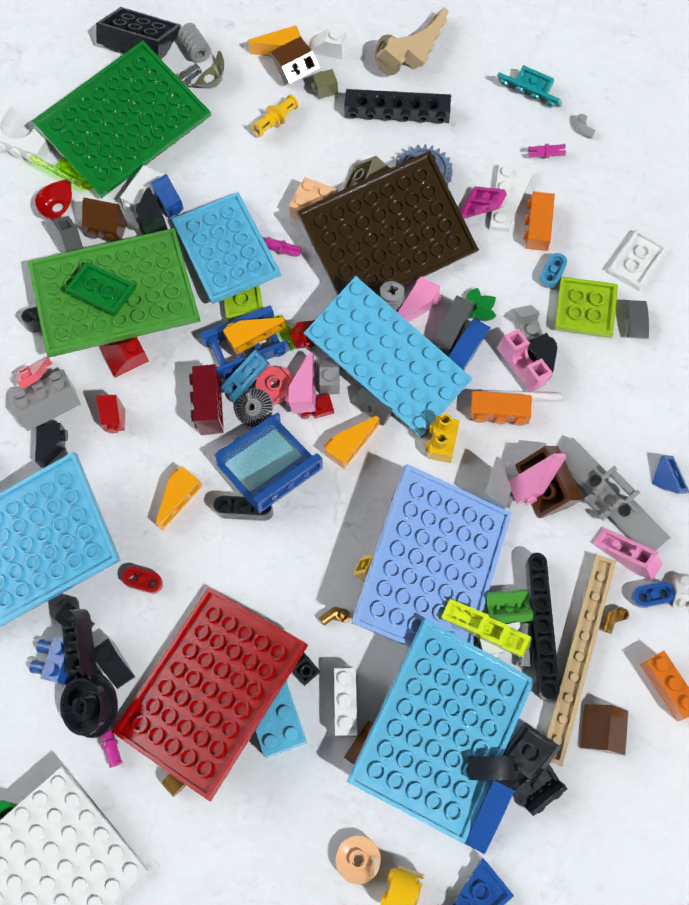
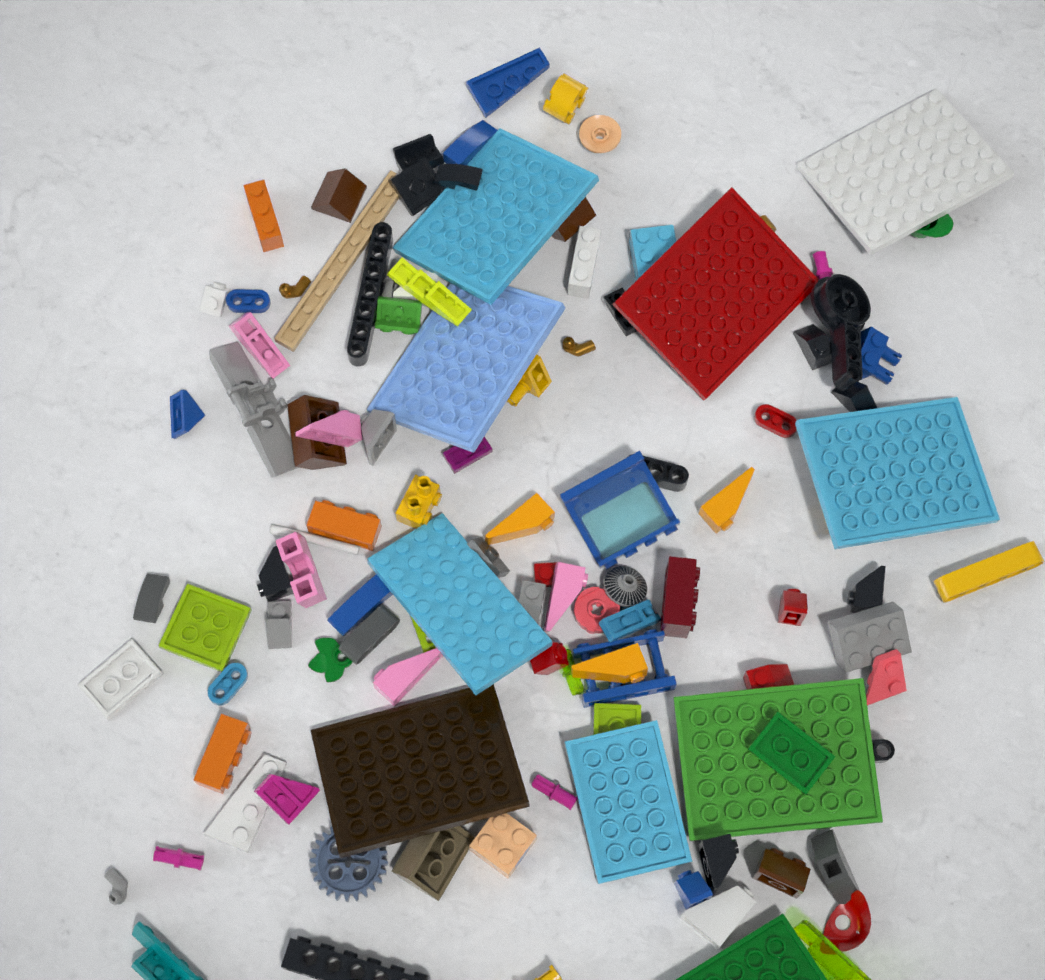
camera: 175 degrees left, 0 degrees up
(393, 294) = (431, 669): light grey piece -> none

